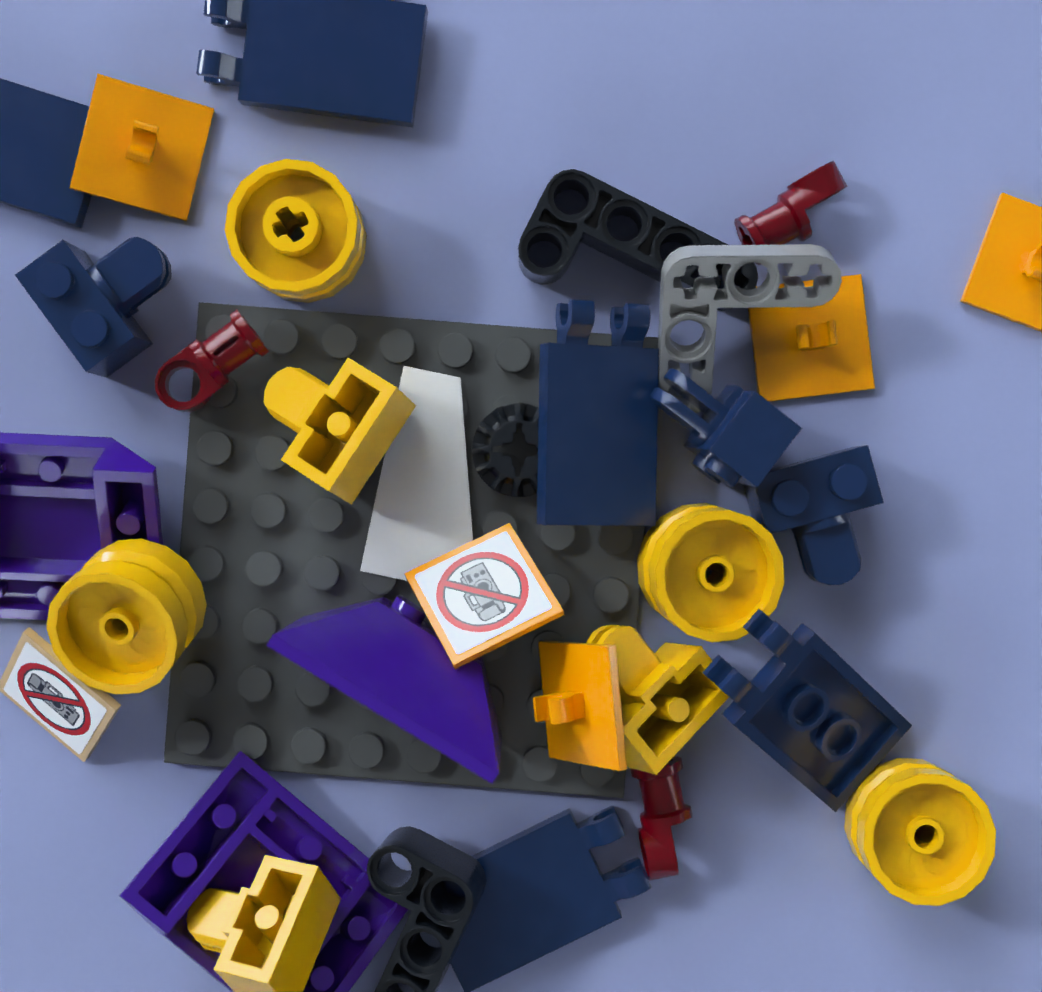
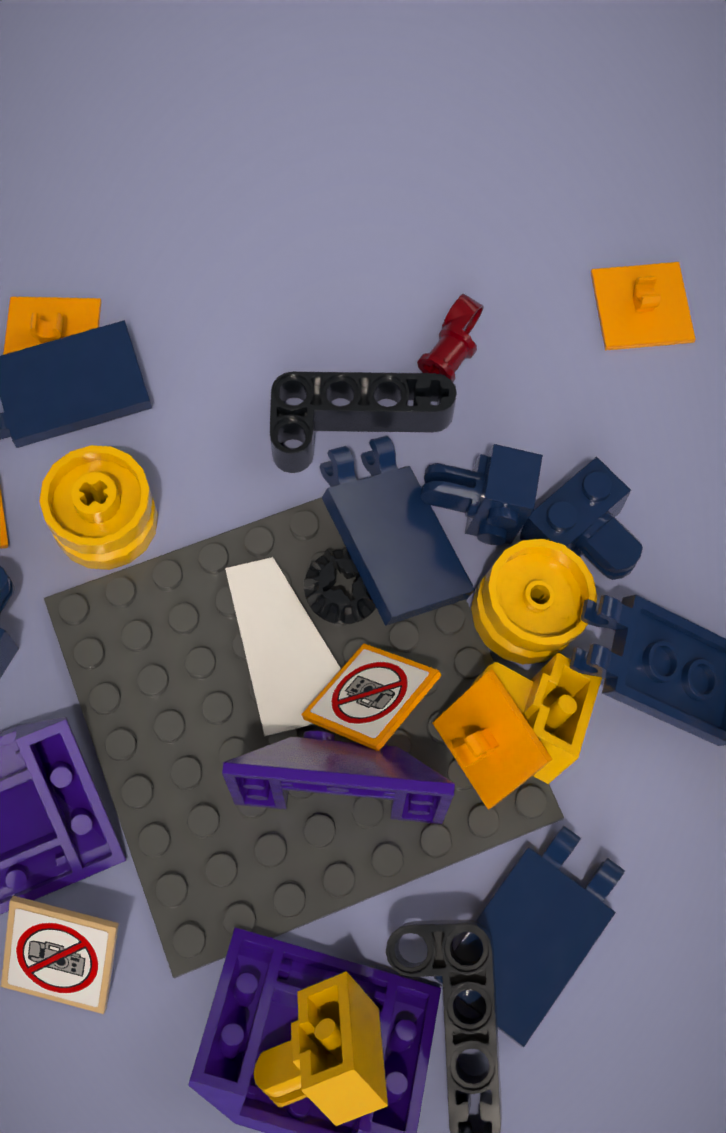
camera: 25 degrees left, 20 degrees down
(126, 616) = (71, 873): yellow wheel -> none
(211, 361) = (74, 628): dark red connector -> none
(338, 425) = (197, 623): yellow brick -> none
(662, 809) = (597, 803): dark red connector -> none
(704, 298) = (425, 414): light grey beam -> none
(813, 348) = (515, 414): light orange piece -> none

